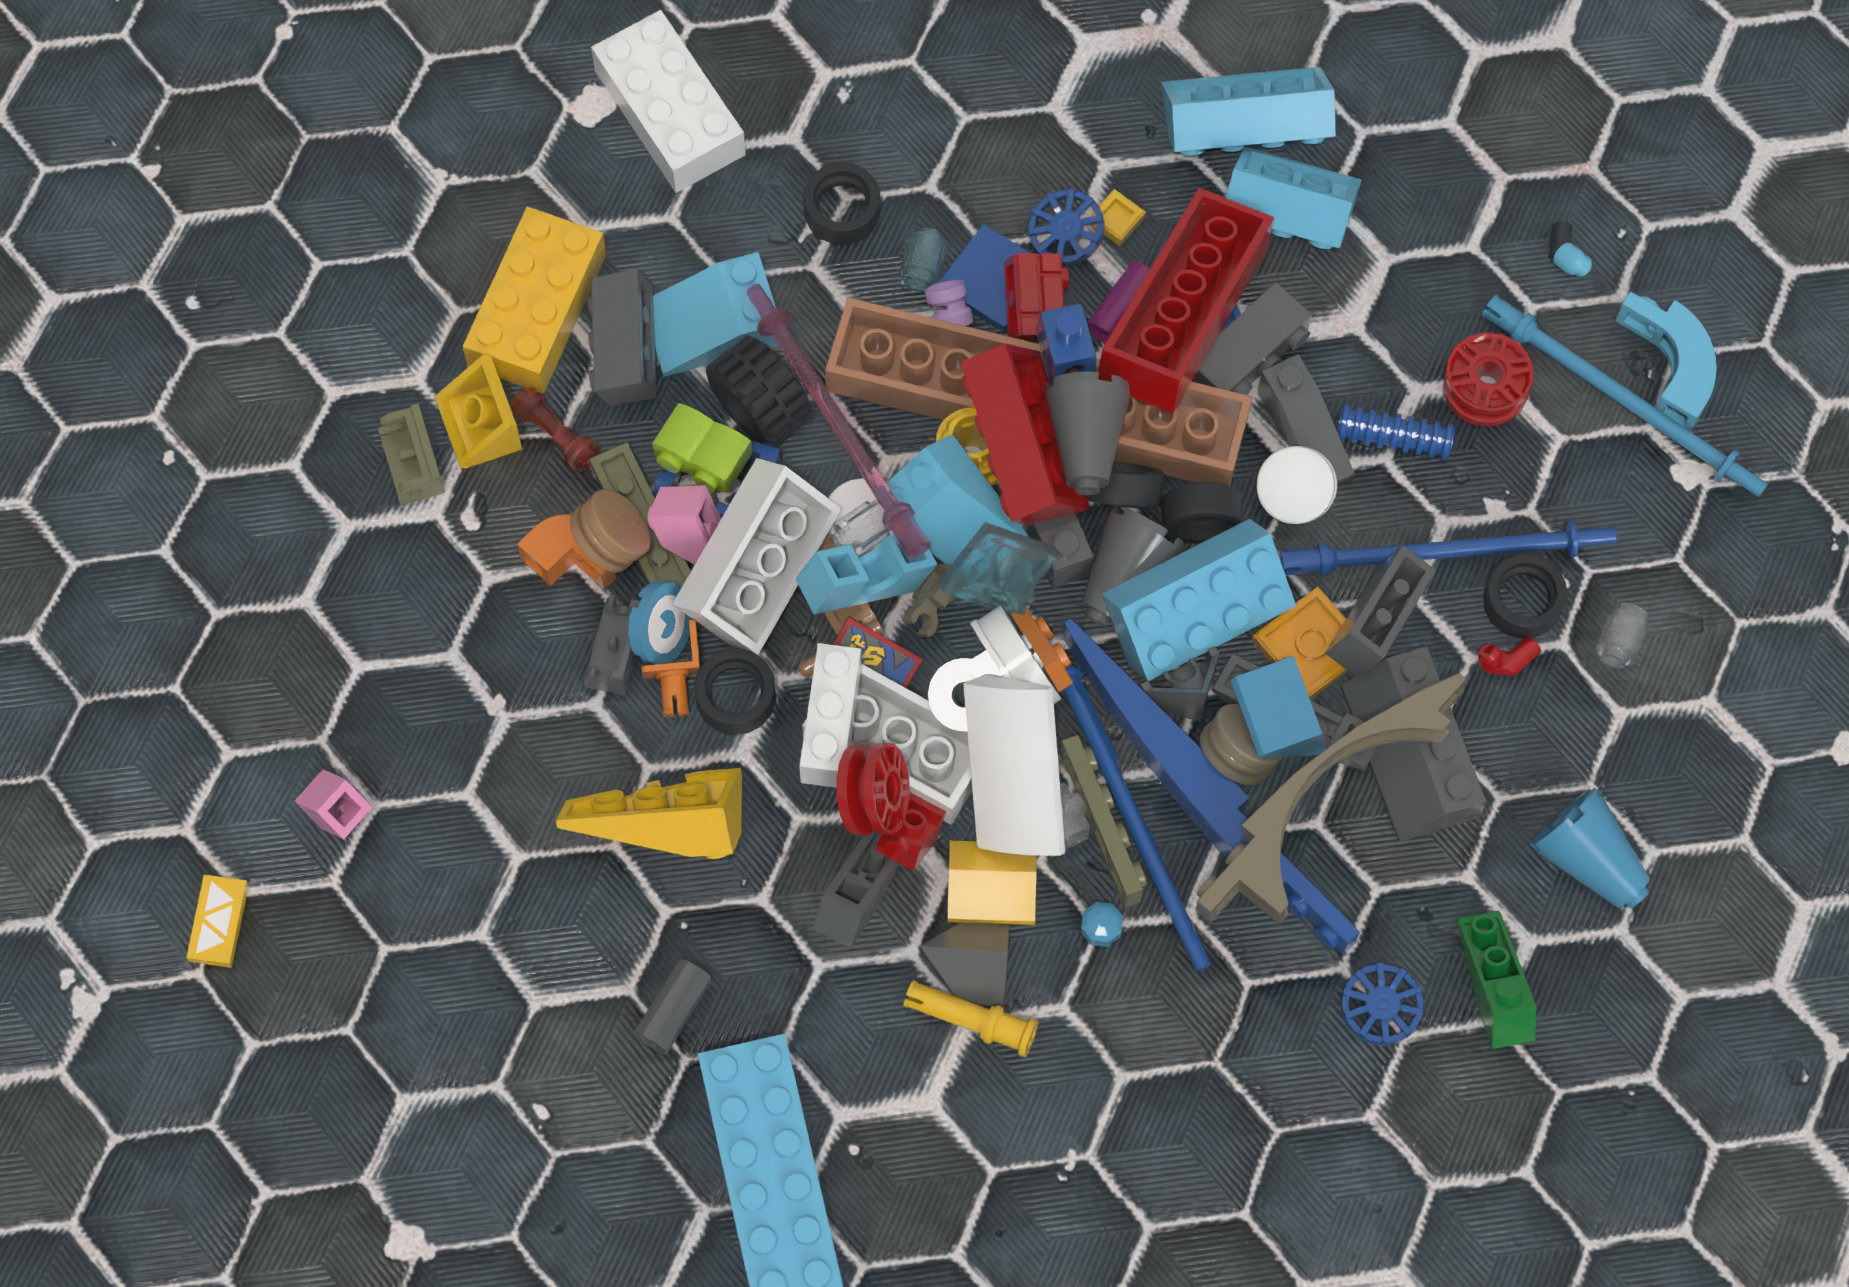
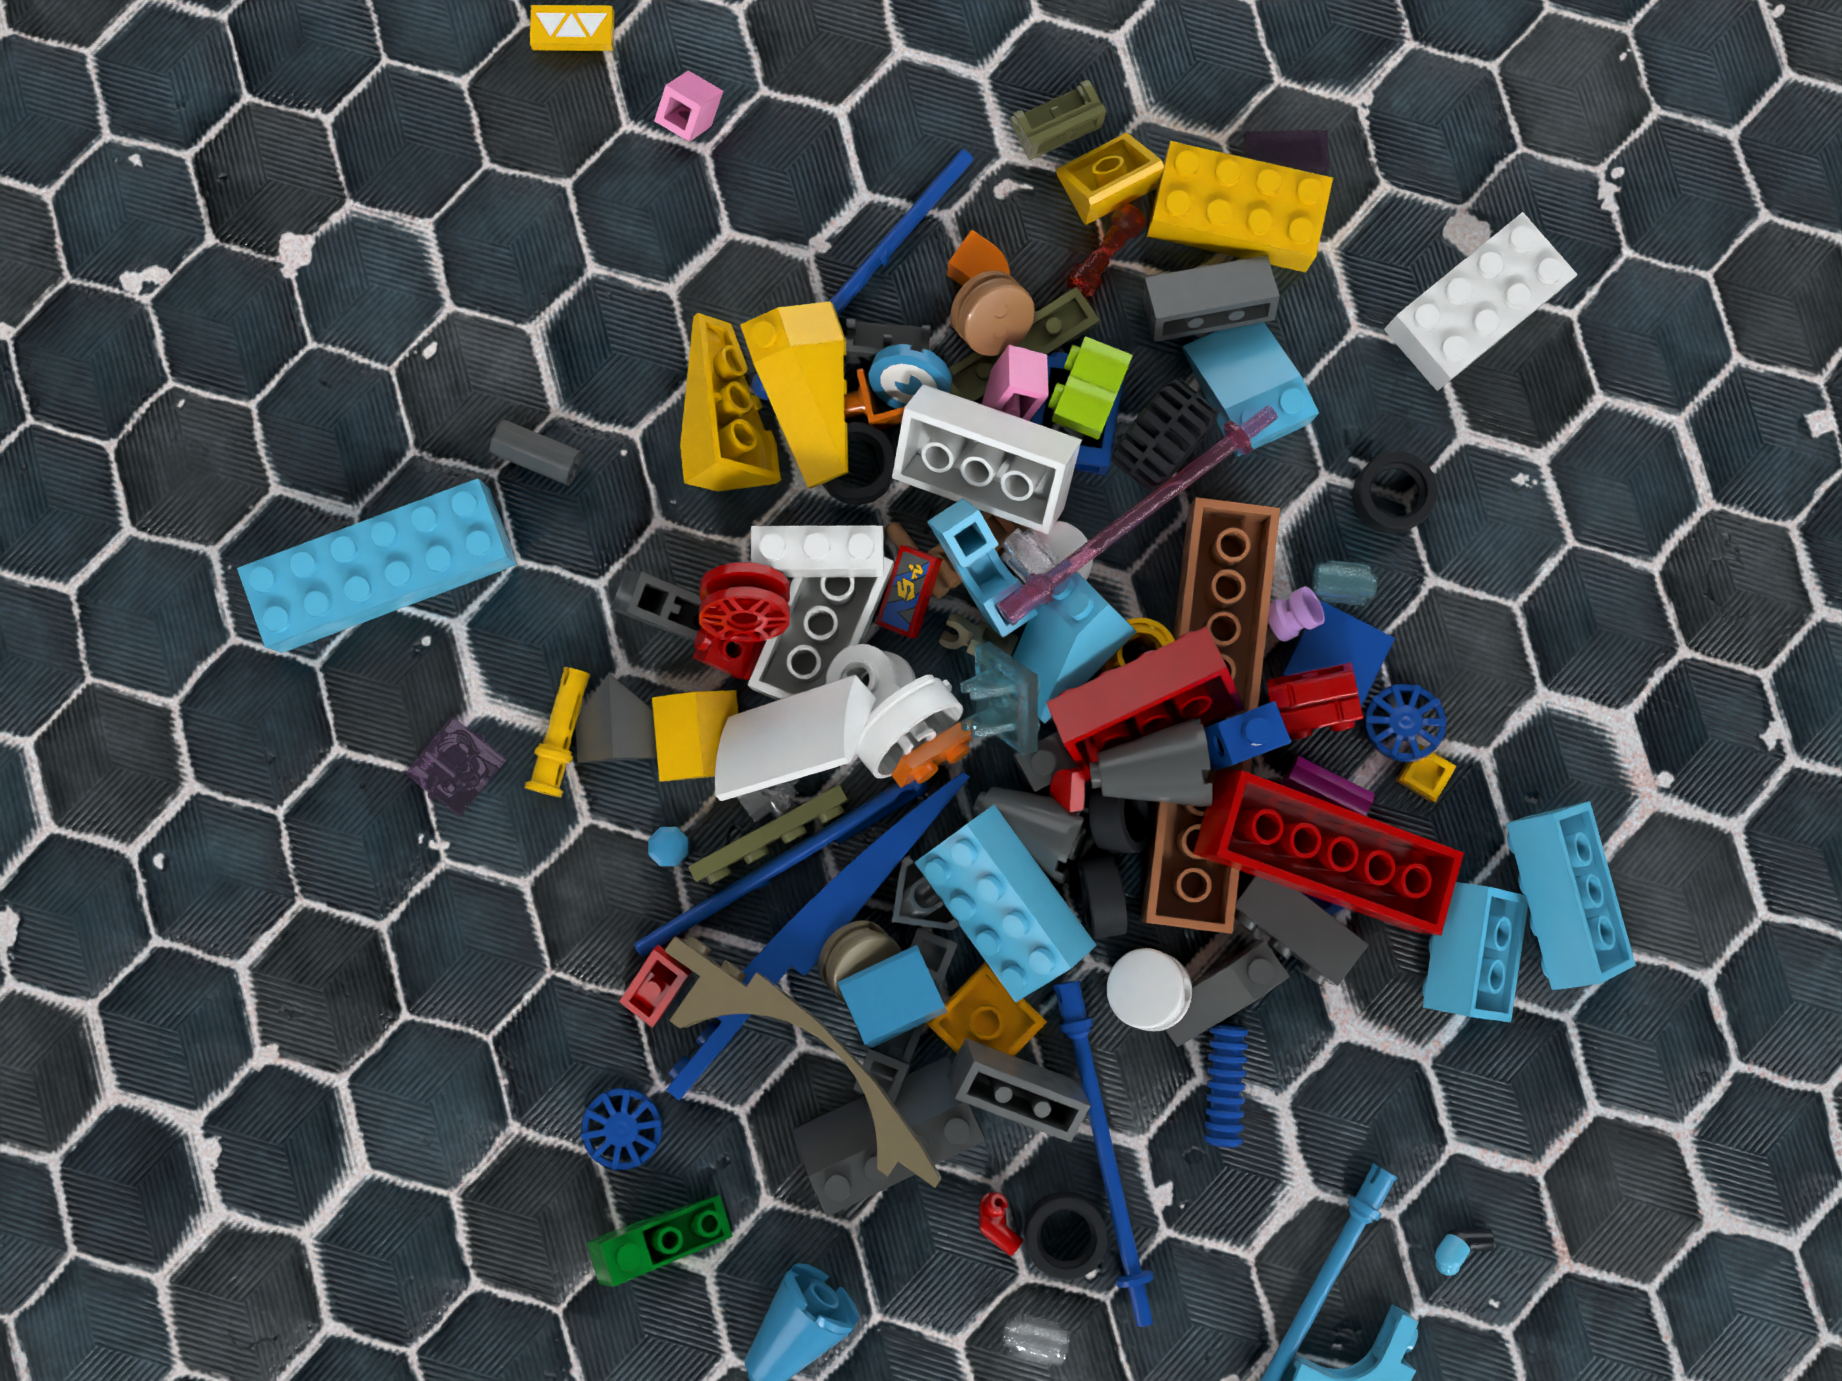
camera: 80 degrees right, 15 degrees up
(482, 251) = (1292, 149): none -> clear purple tile
(585, 707) = (892, 241): none -> blue bar
(643, 718) = (802, 371): none -> yellow wedge
(991, 1131) = (456, 766): none -> clear purple piece
(1095, 520) = (1069, 788): none -> red tile
(1241, 944) = (655, 986): none -> red slope
(1494, 357) = (1325, 1184): red wheel -> none

